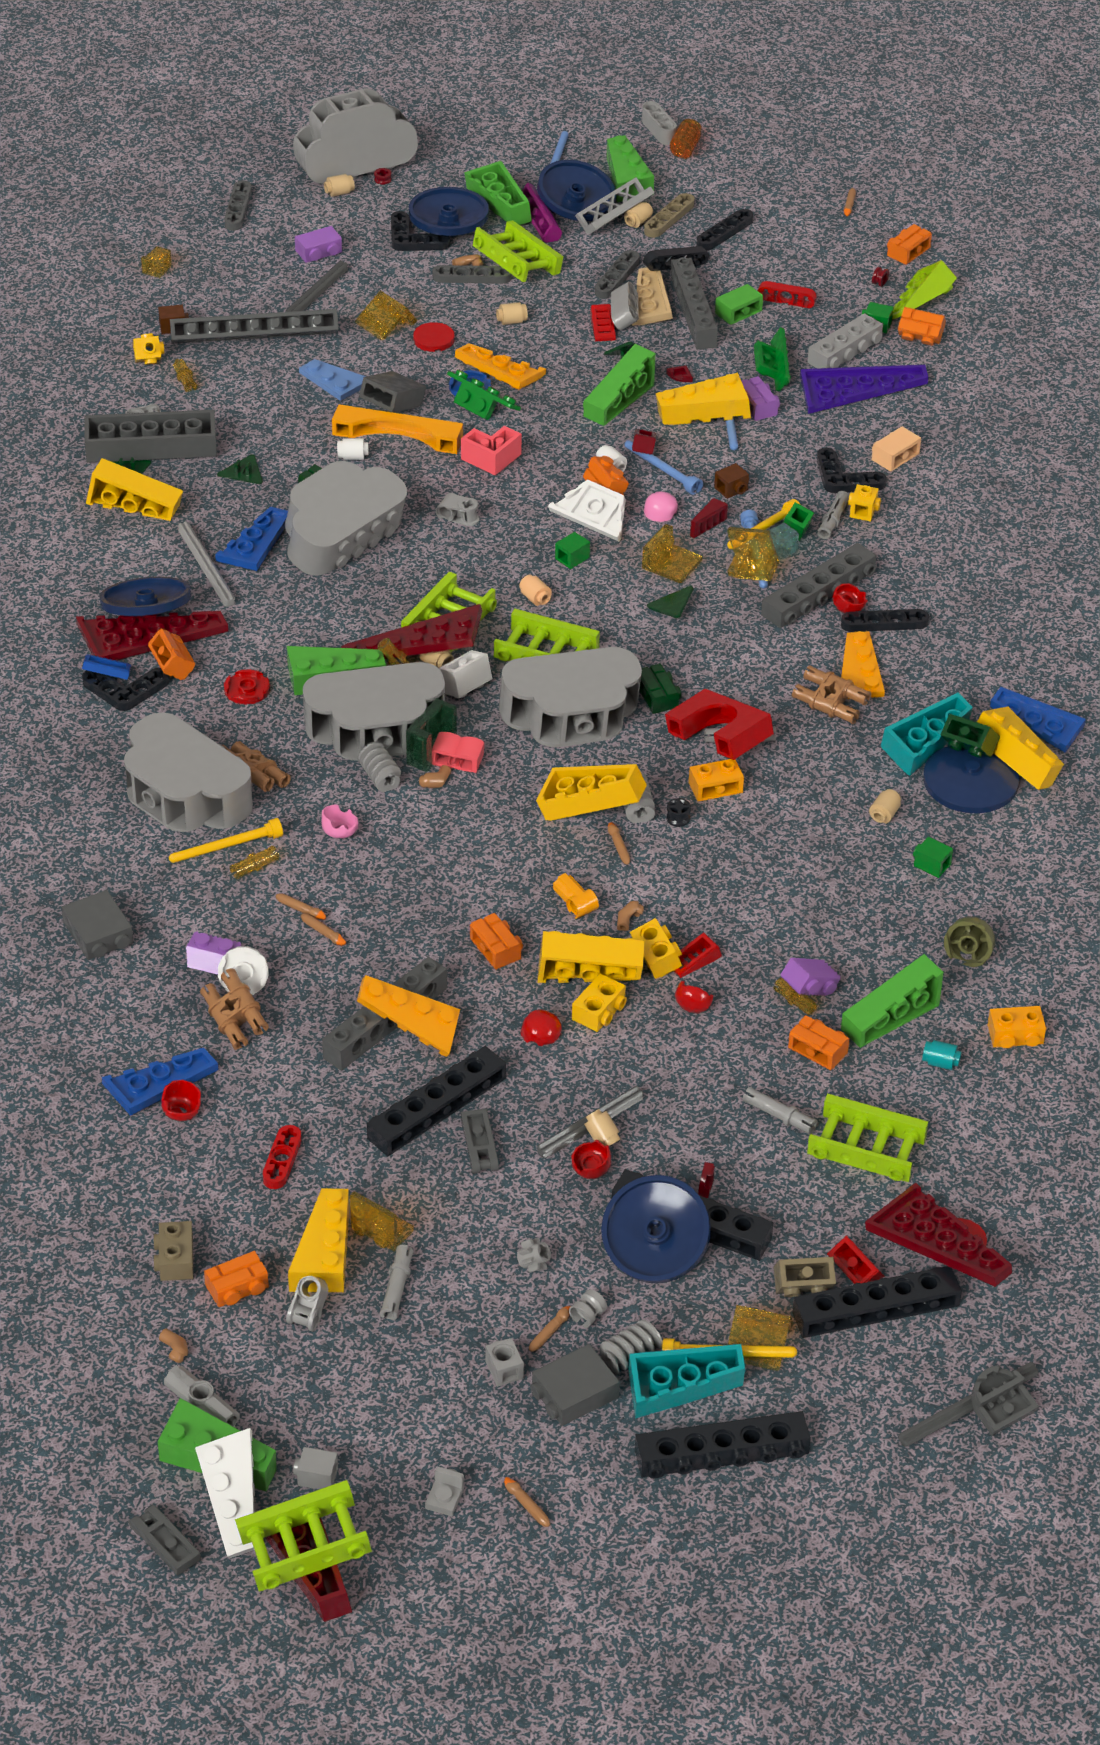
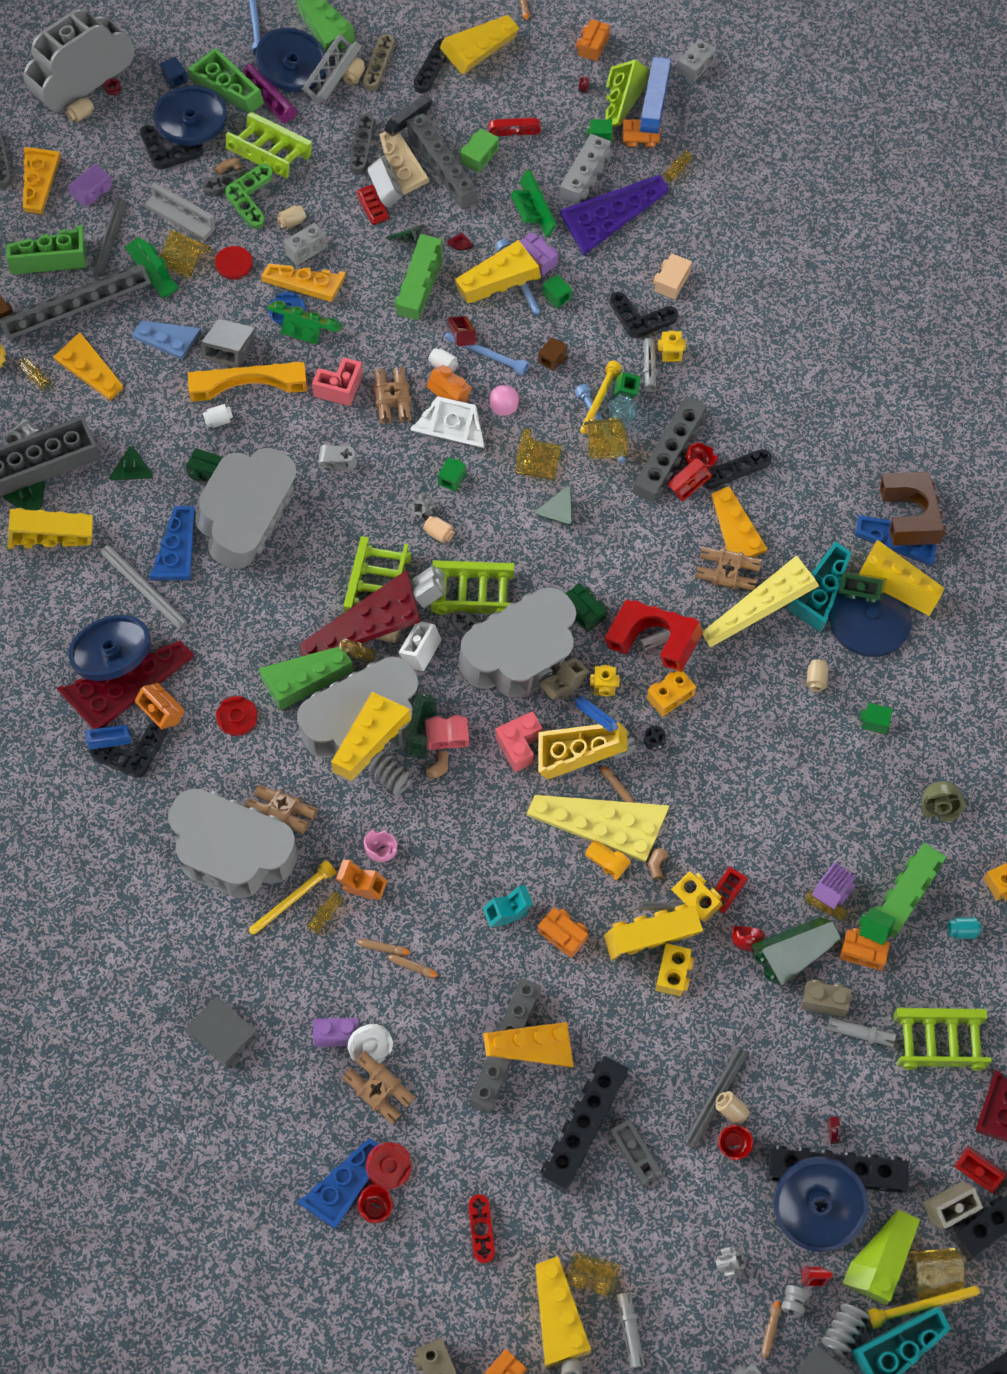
camera: 20 degrees left, 20 degrees up
(213, 1074) = (388, 1165): none -> red tile
(242, 383) = (87, 365): none -> light orange wing
(248, 285) = (48, 252): none -> bright green wedge
(271, 226) = (38, 177): none -> light orange wing
(300, 844) = (361, 882): none -> orange brick
(348, 319) = (155, 266): none -> green bracket
(367, 710) = (372, 729): none -> yellow wedge
(398, 287) = (180, 212): none -> light grey fence
(445, 907) = (508, 908): none -> teal brick
(450, 175) = (173, 72): none -> dark blue brick
(473, 282) = (243, 192): none -> bright green beam
(498, 624) = (429, 586): none -> light grey brick
(514, 336) = (305, 244): none -> light grey brick
(527, 565) = (420, 500): none -> light grey gear
(528, 772) = (515, 737): none -> coral brick
(541, 1027) = (636, 1012): red hair -> none
(543, 475) = (385, 400): none -> medium nougat pin
(606, 742) = (566, 680): none -> dark tan brick
(609, 876) = (617, 825): none -> light yellow wing
(619, 757) = (595, 713): none -> blue axle
(620, 1289) = (815, 1276): none -> red slope
(648, 751) = (604, 680): none -> yellow brick
(702, 1309) = (882, 1260): none -> lime wedge
(708, 517) = (552, 397): dark red slope -> none
(737, 1016) = (794, 949): none -> slope
(753, 1069) = (826, 998): none -> dark tan brick
(762, 432) = (556, 291): none -> green brick
(782, 218) = (477, 43): none -> yellow wedge
(826, 613) = (689, 479): none -> red slope
(839, 1017) = (876, 925): none -> green brick
(855, 723) = (777, 591): none -> light yellow wing
(949, 364) = (678, 166): none -> clear yellow pin
(950, 295) = (655, 95): none -> beam
(1014, 283) = (696, 60): none -> light grey brick
(1075, 701) = (919, 489): none -> reddish brown arch

